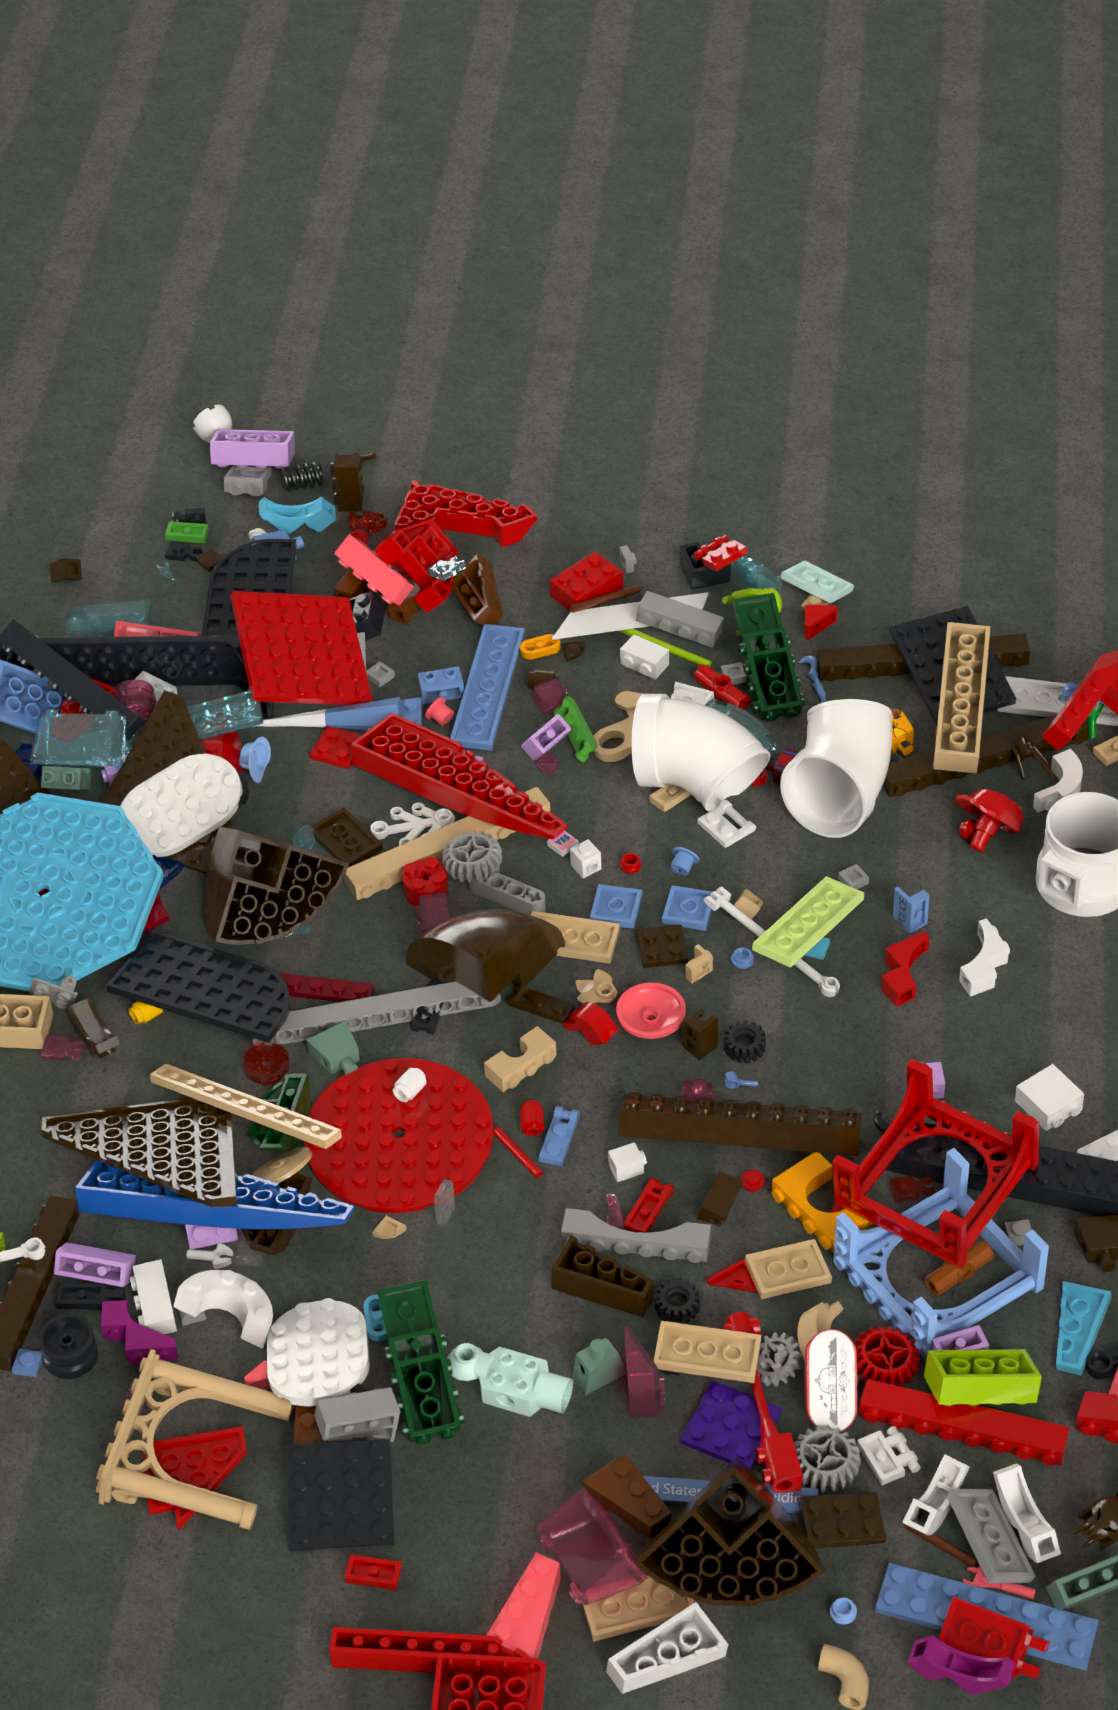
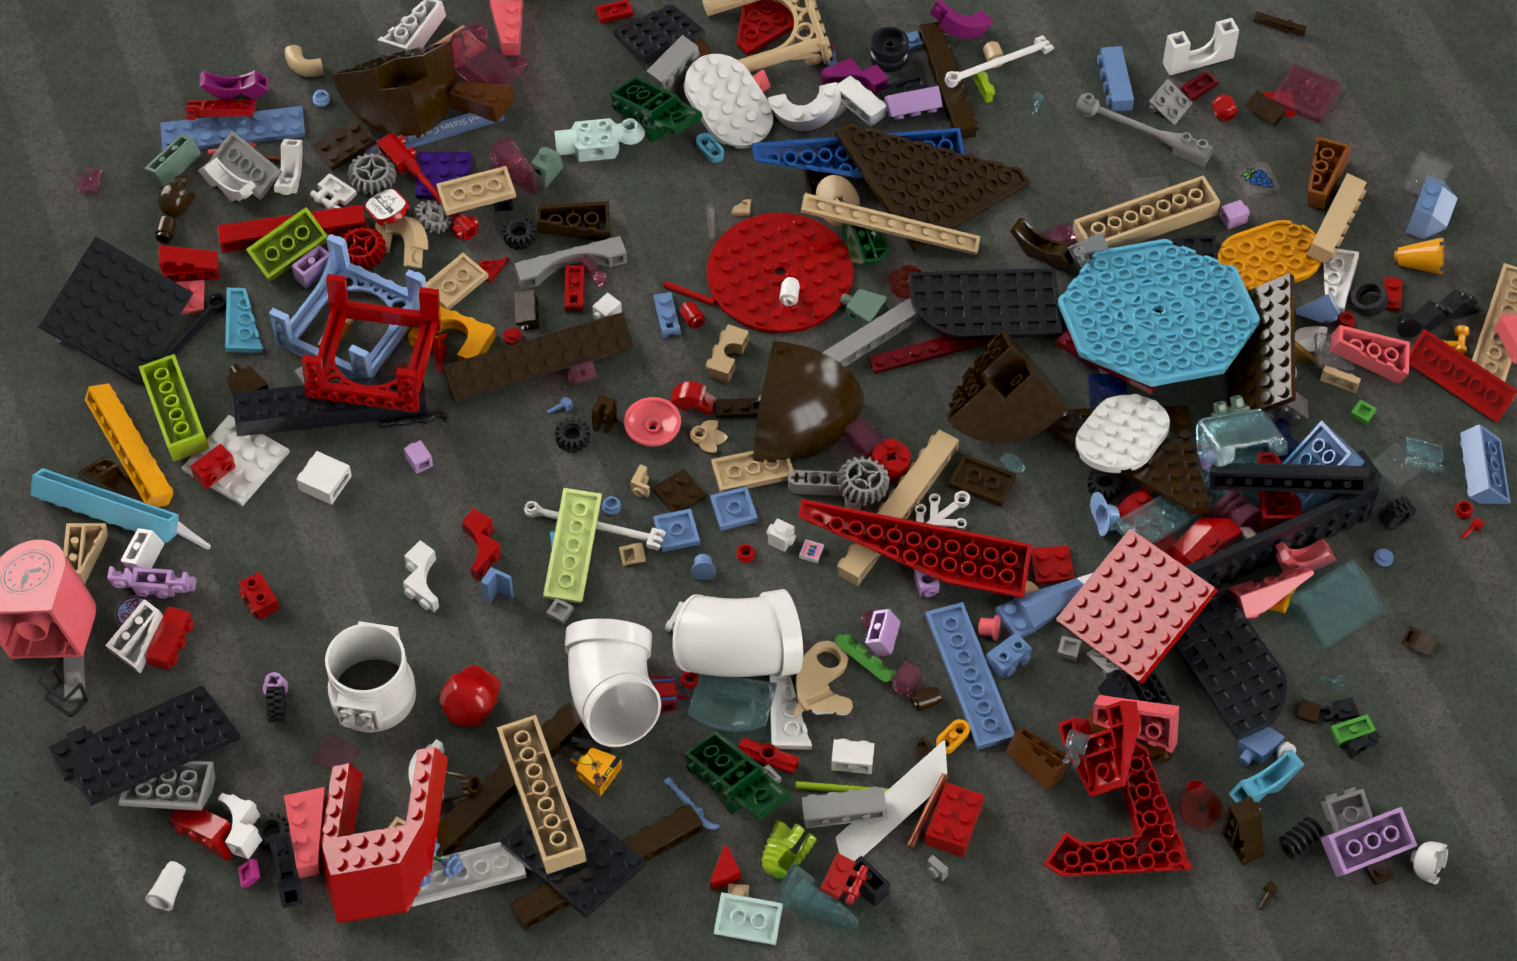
camera: 150 degrees right, 10 degrees up
(192, 682) = (1205, 538): none -> red wedge

